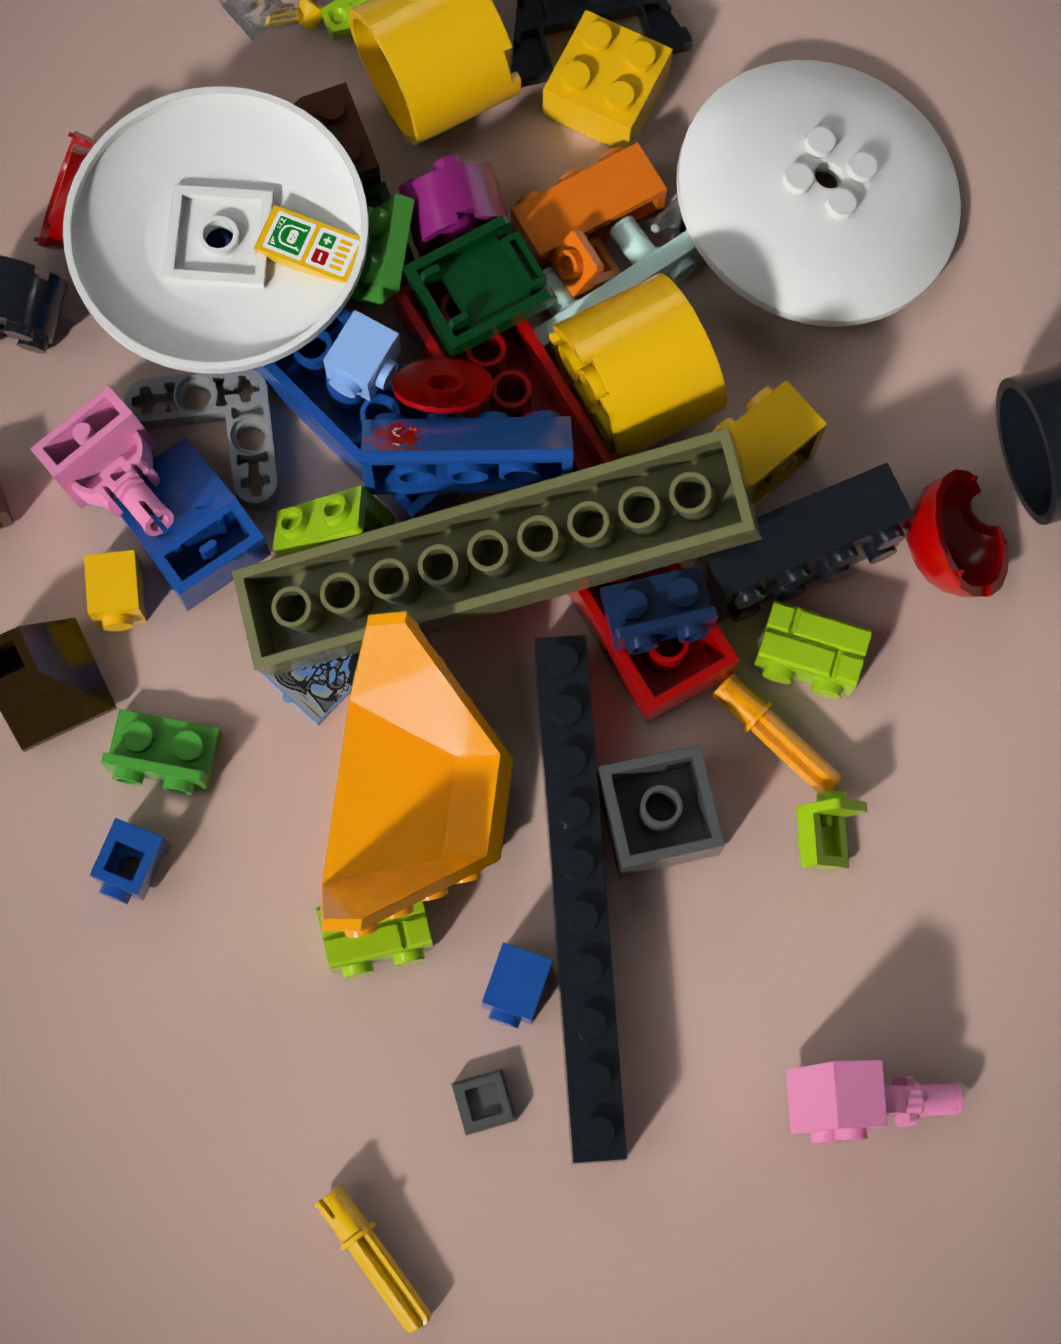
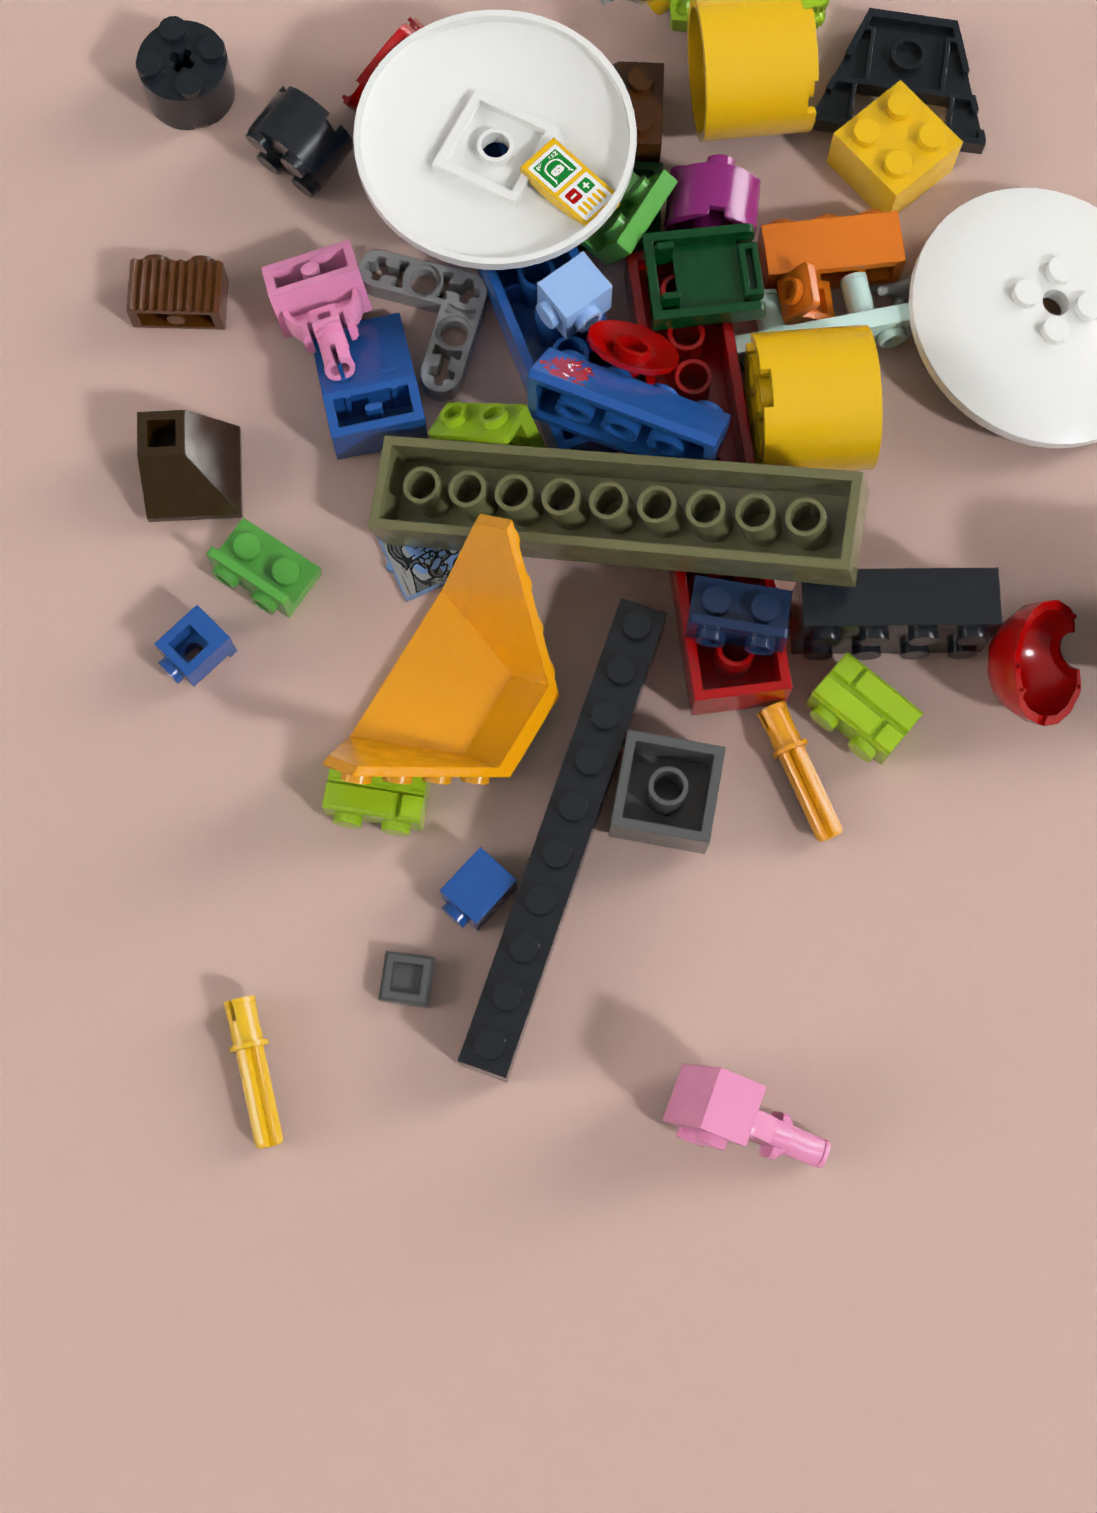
camera: 25 degrees right, 0 degrees up
(115, 589) = (283, 415): yellow brick -> none
(775, 437) = (906, 513): yellow brick -> none
(823, 830) = (806, 870): lime bracket -> none

